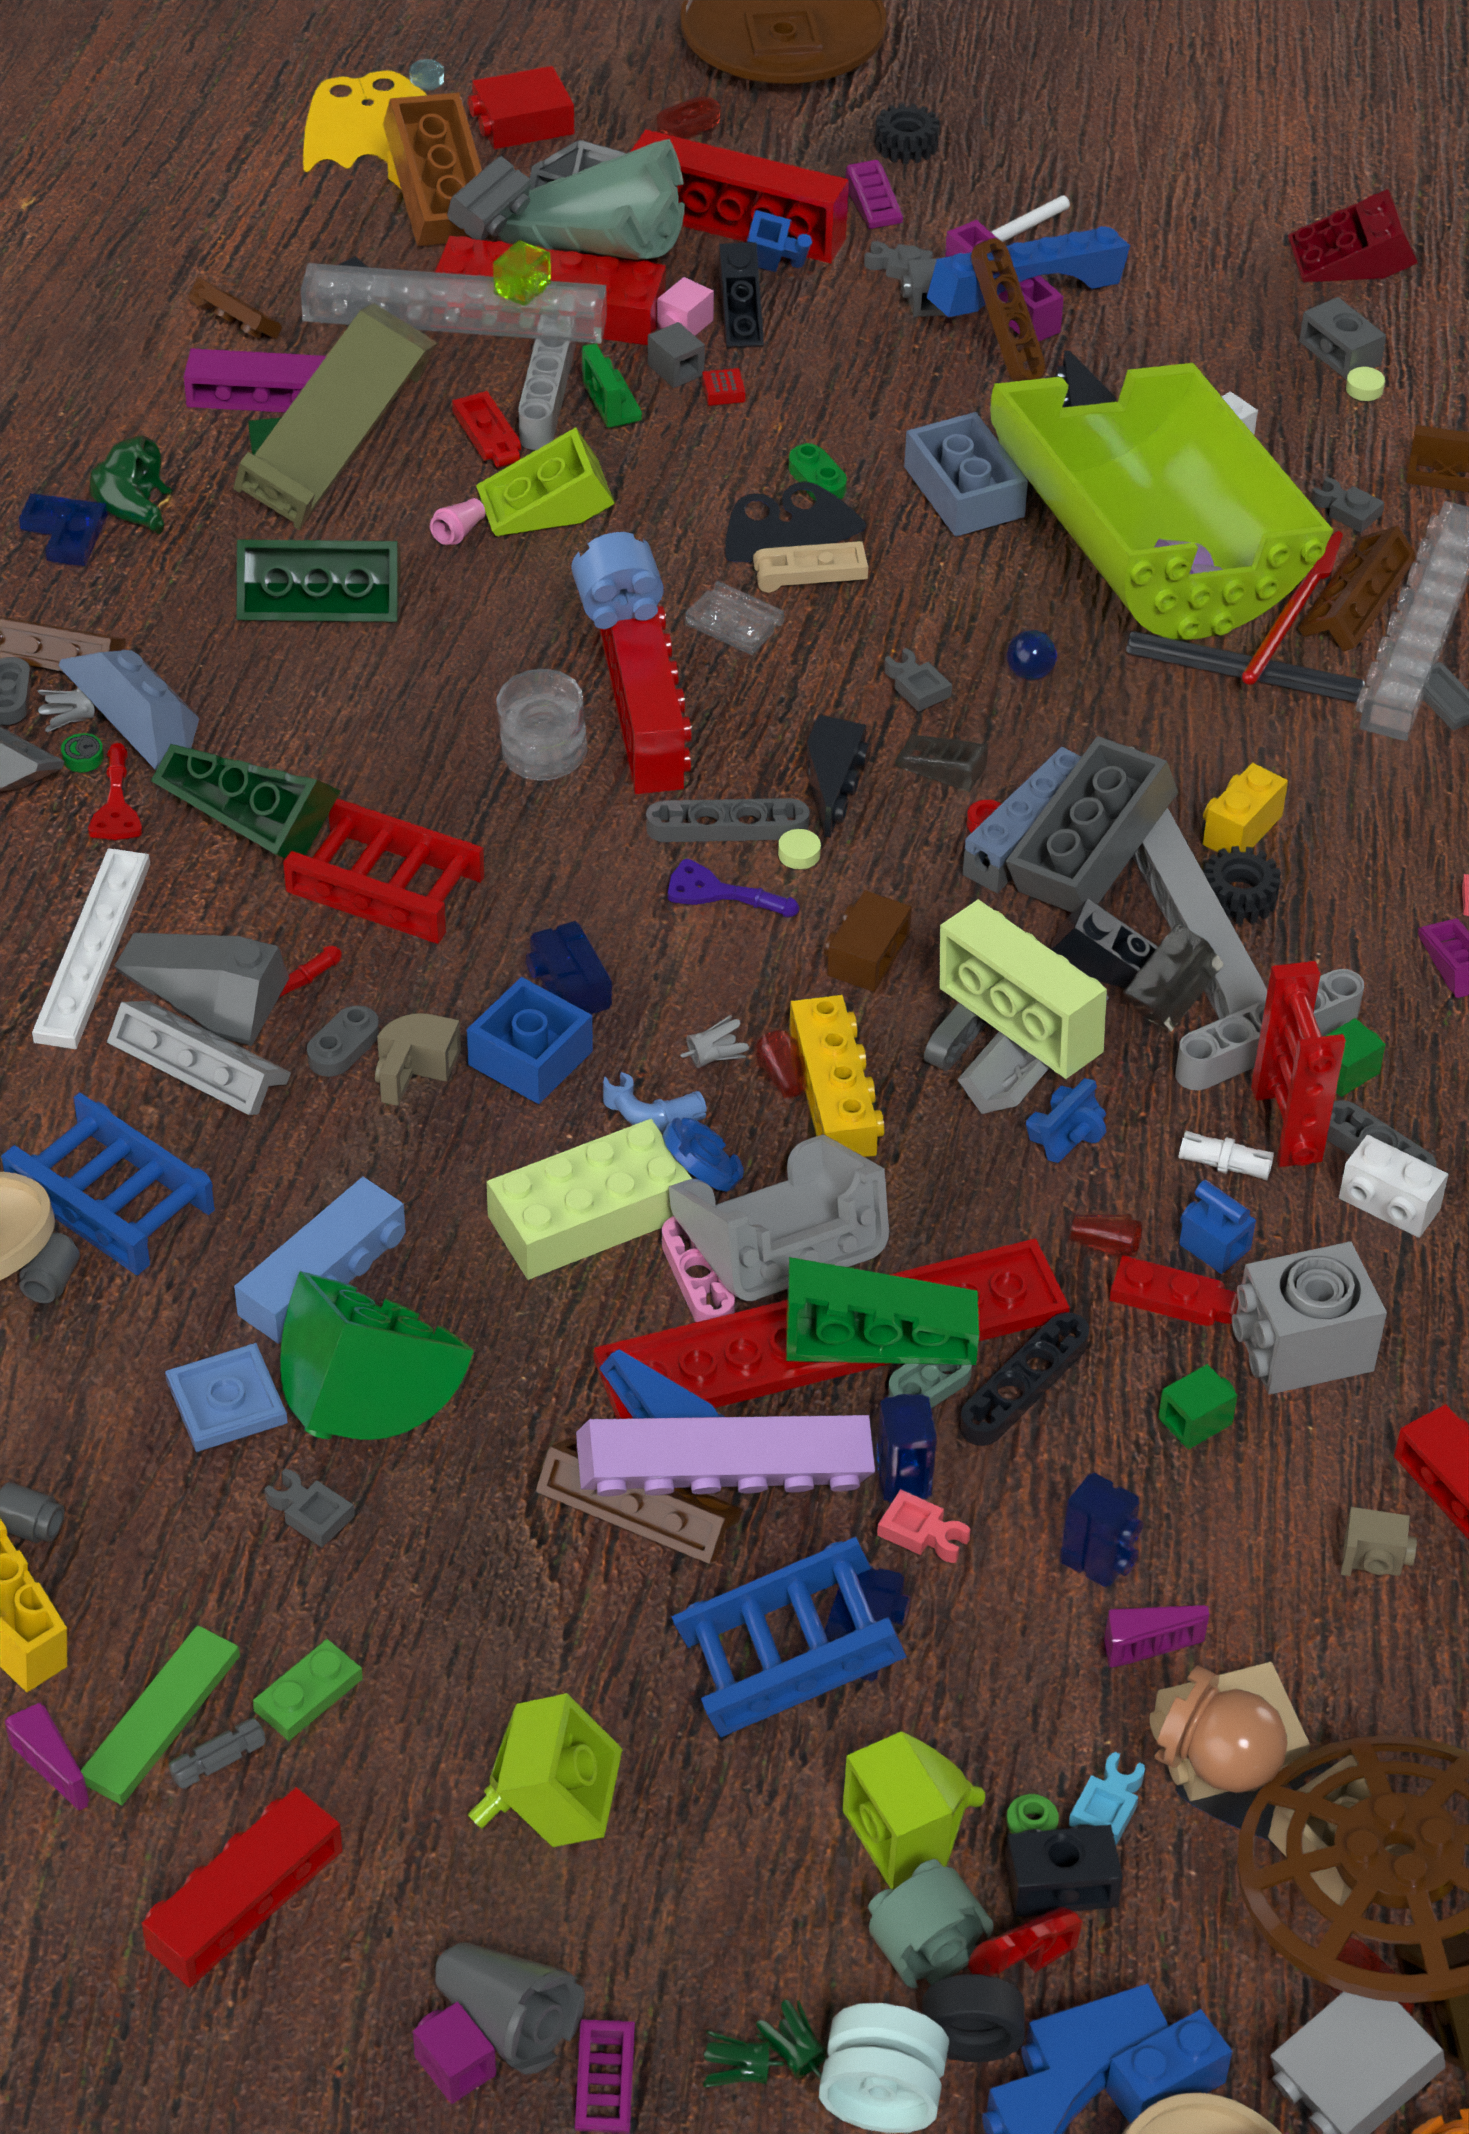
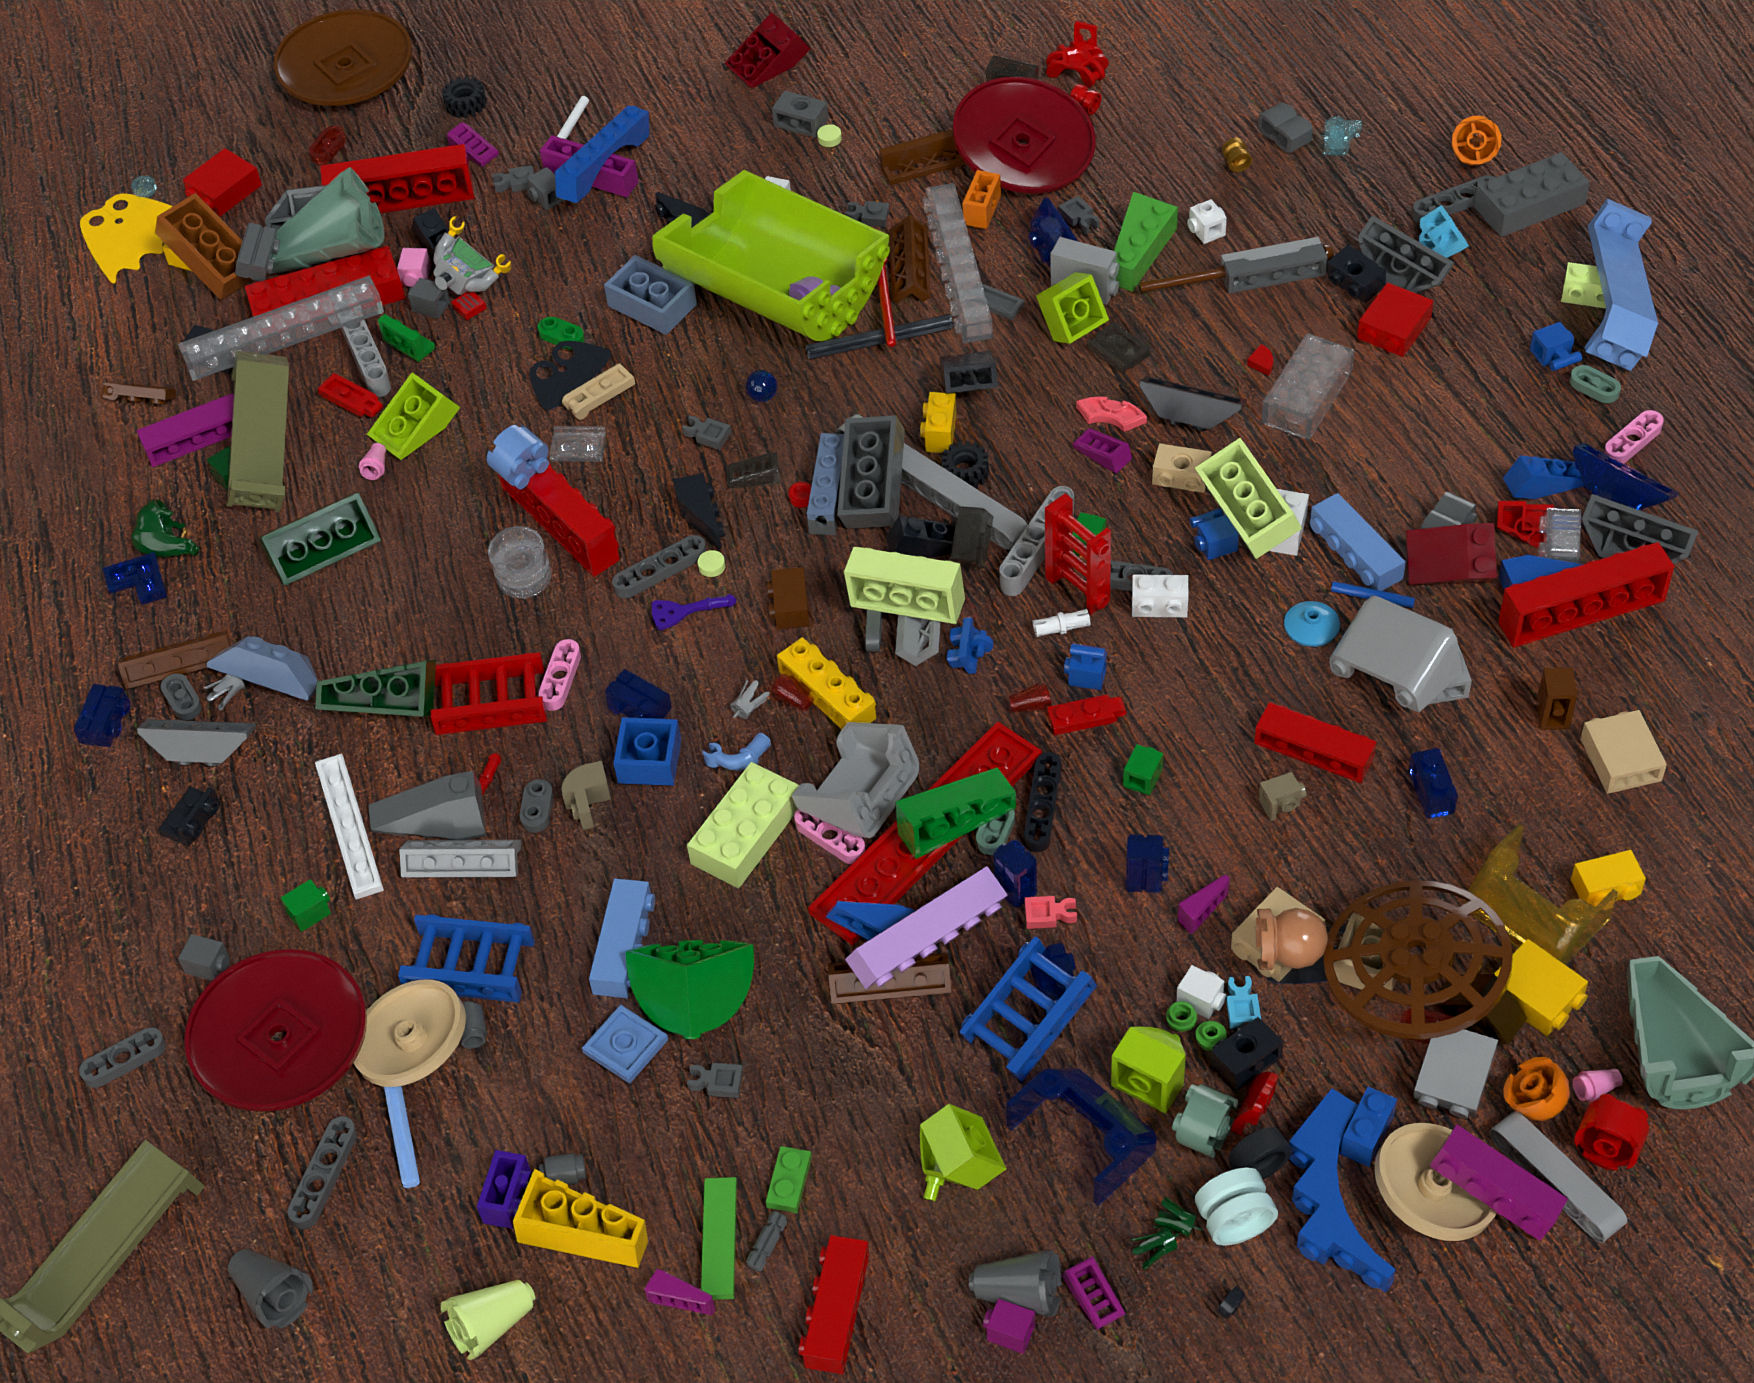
camera: 25 degrees left, 5 degrees up
(82, 752) = (254, 711): tile -> none
(115, 818) = (298, 735): red piece -> none
(490, 908) = (556, 664): none -> bright pink beam
(522, 273) = (318, 291): clear neon green brick -> none
(702, 1154) = (785, 766): blue tile -> none
(742, 330) = (462, 266): none -> torso
(772, 241) = (437, 197): blue brick -> none
(793, 1895) = (1126, 1136): none -> clear blue windscreen
(1012, 1758) = (1181, 1009): none -> bright green plate
(1013, 309) = (609, 186): reddish brown beam -> none
(1059, 1749) = (1202, 991): none -> white brick
(1309, 1318) = (1170, 691): light grey brick -> none
(1327, 761) = (968, 372): none -> black brick

